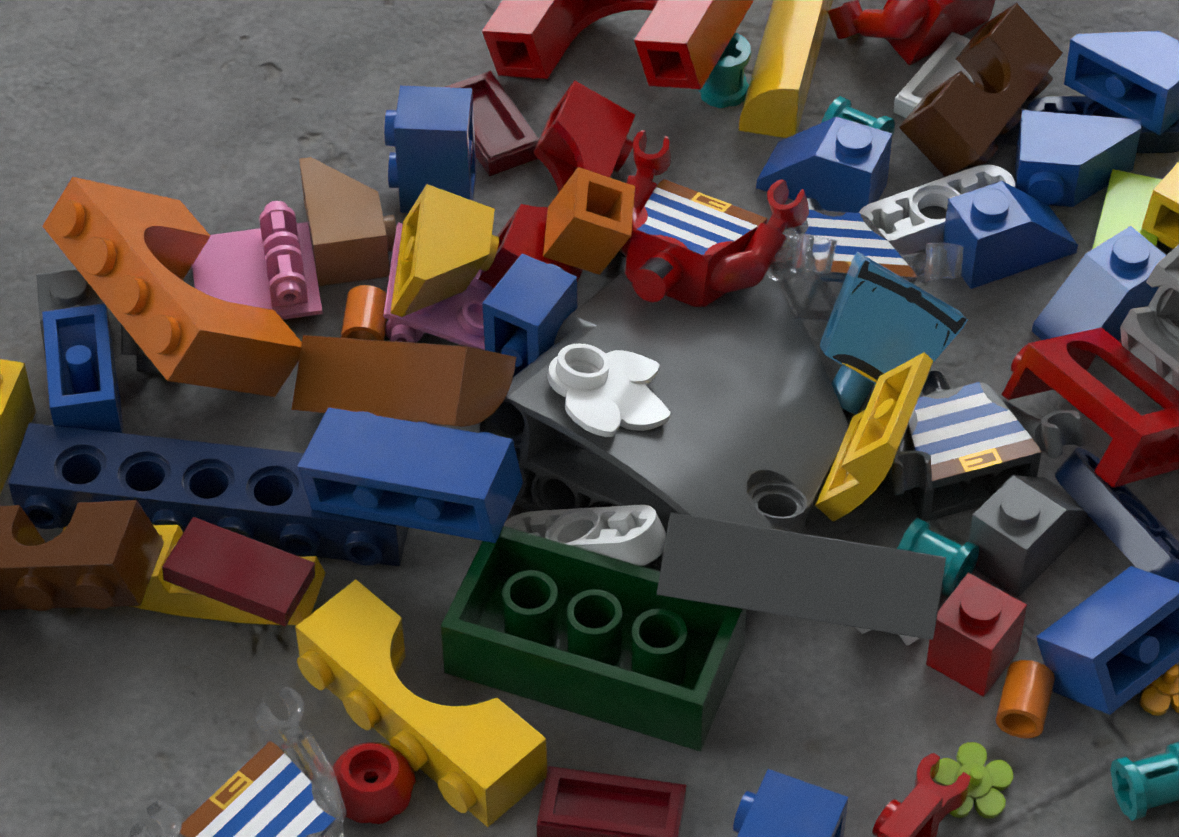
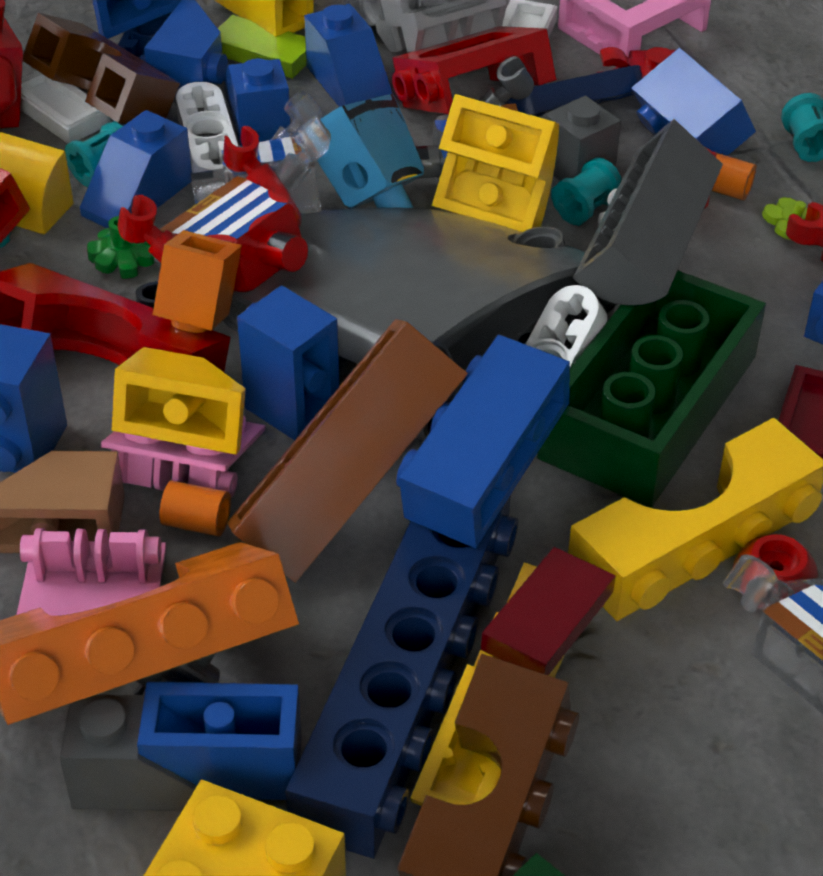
camera: 80 degrees left, 5 degrees down
(607, 389) = (419, 289): white plate -> none
(726, 183) = (113, 252): none -> green plant

